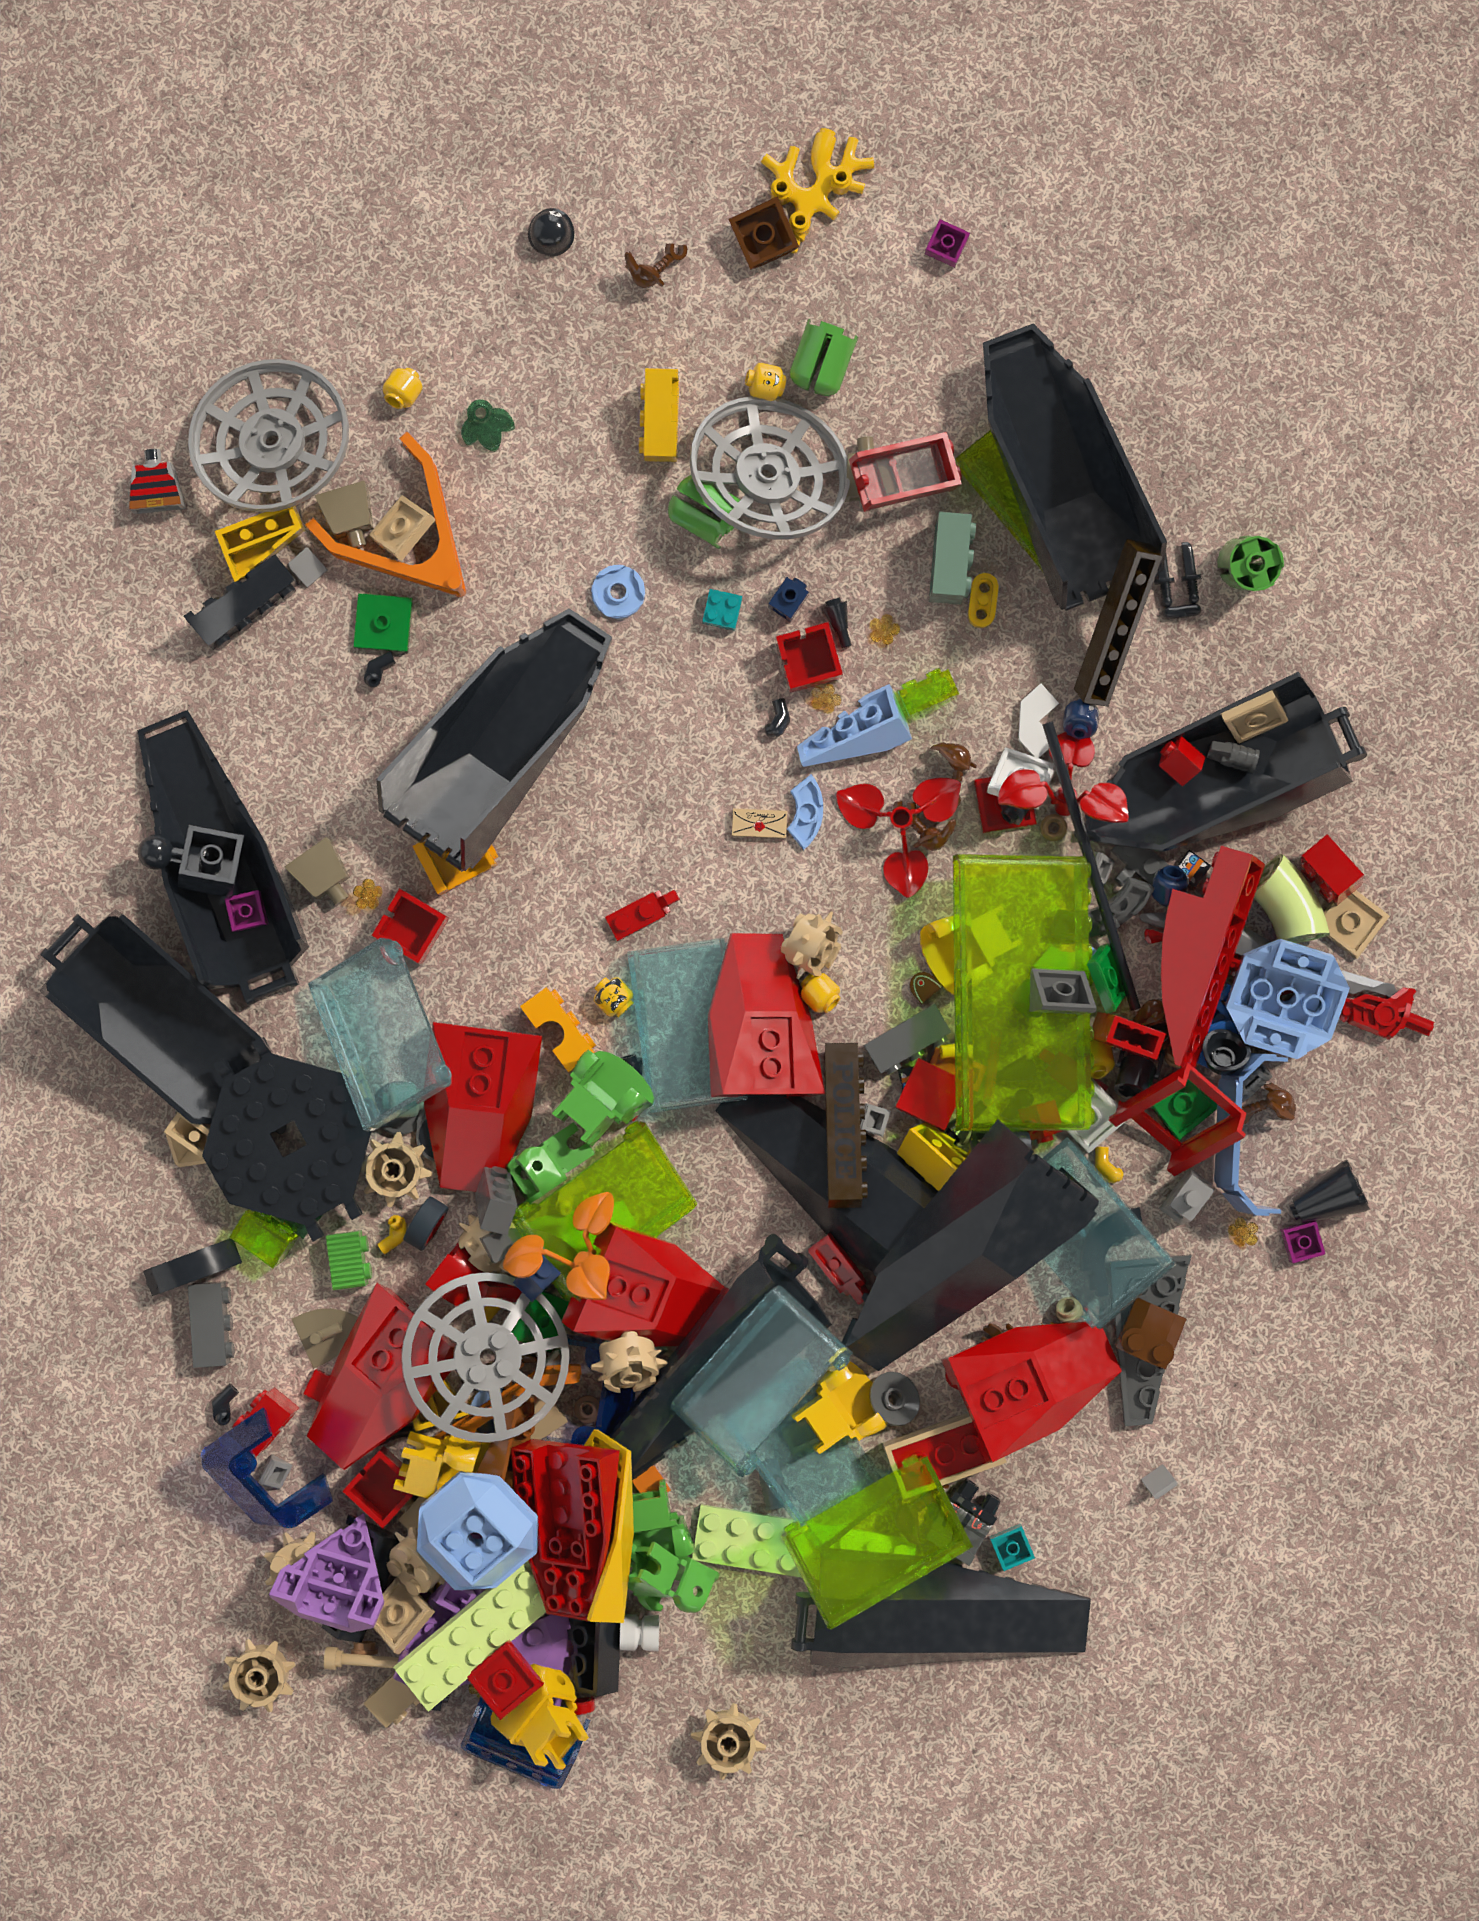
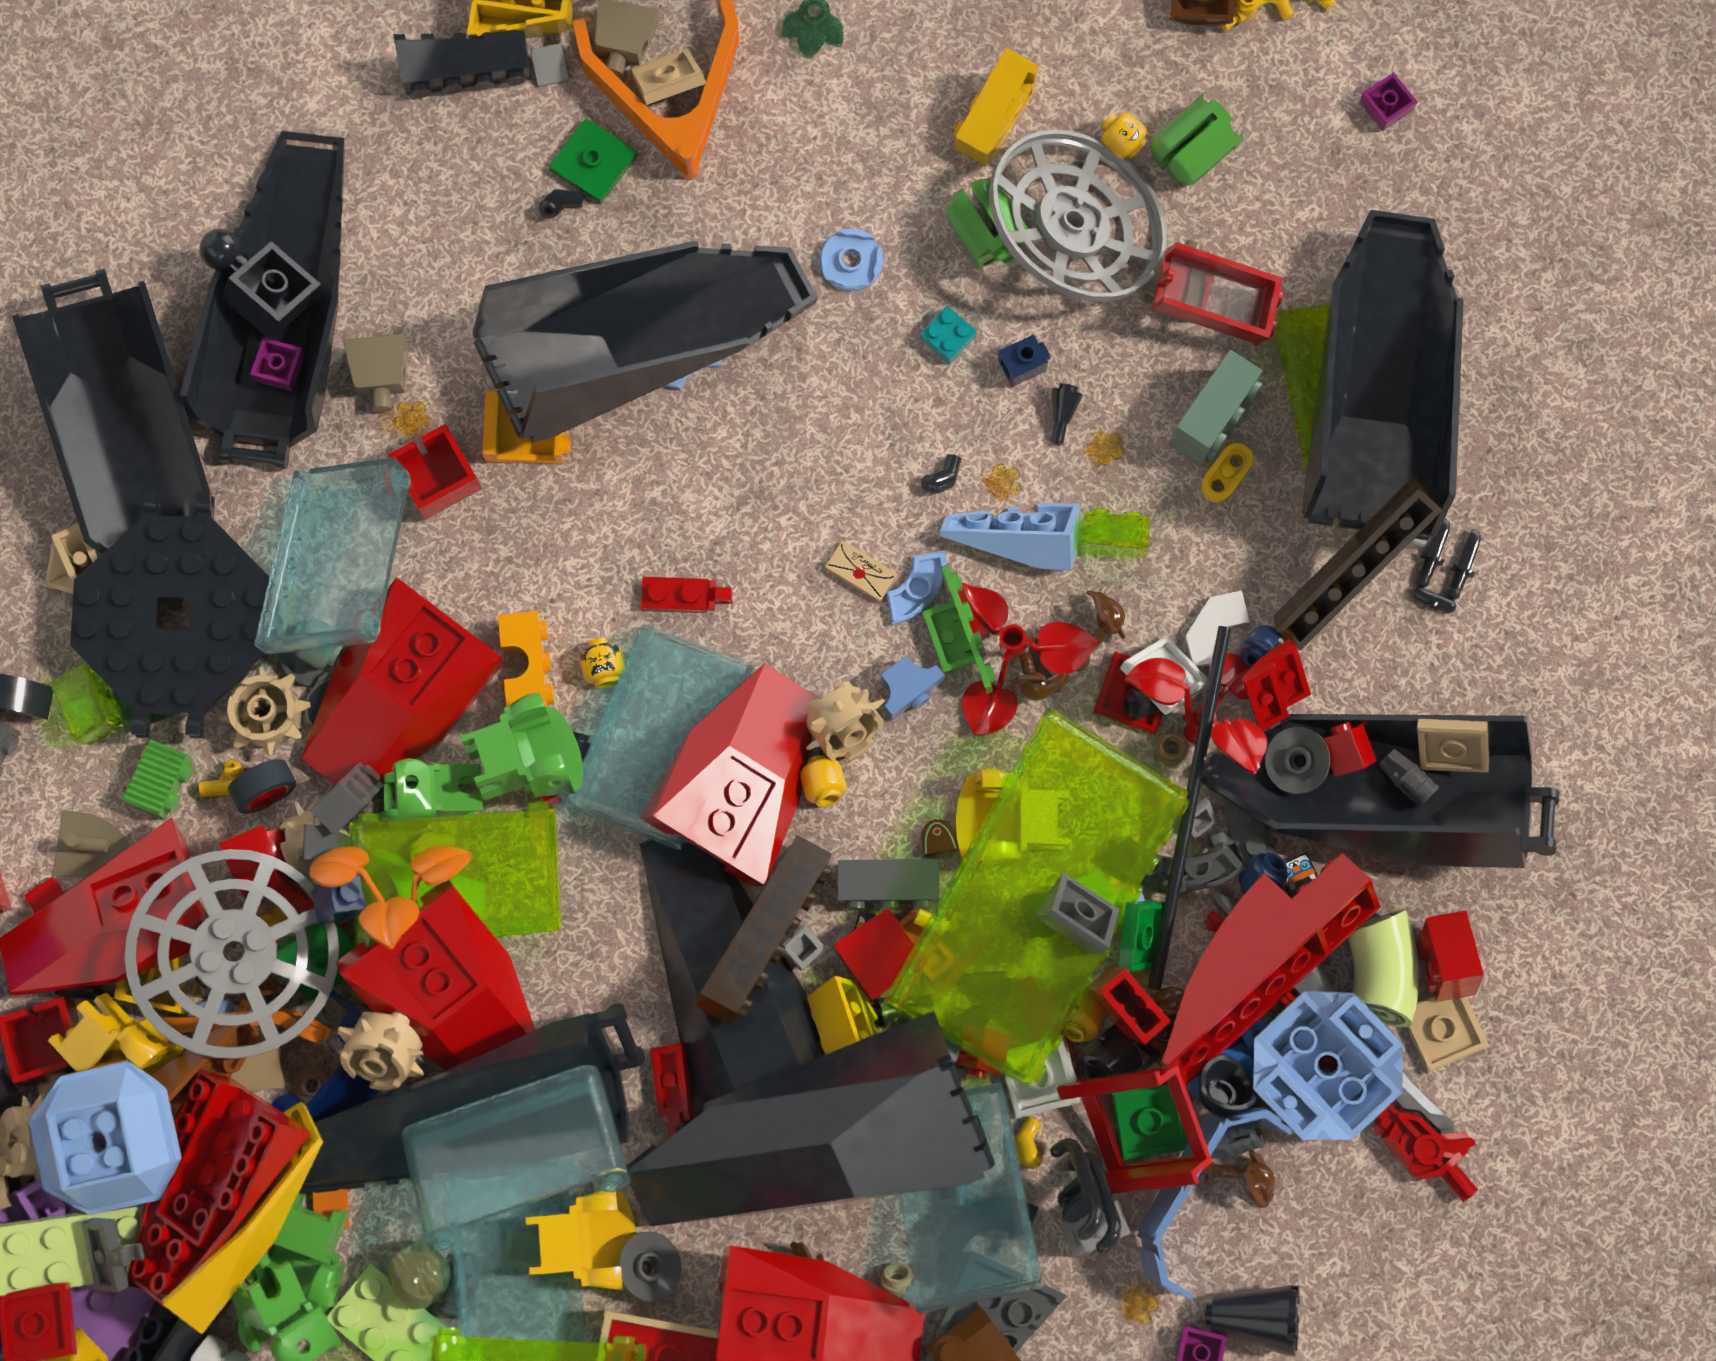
camera: 25 degrees right, 10 degrees down
(526, 1610) = (106, 1256): none -> dark grey plate
(740, 1496) = (418, 1275): none -> olive hair
(810, 659) = (1008, 433): red piece -> none
(842, 889) = (908, 686): none -> medium blue brick
(852, 834) = (953, 635): none -> bright green bracket
(1103, 742) = (1276, 684): none -> red slope
(1143, 799) = (1283, 755): none -> dark grey dish
(1171, 1182) = (1087, 1195): none -> black piece
(1260, 574) = (1545, 569): bright green cylinder -> none

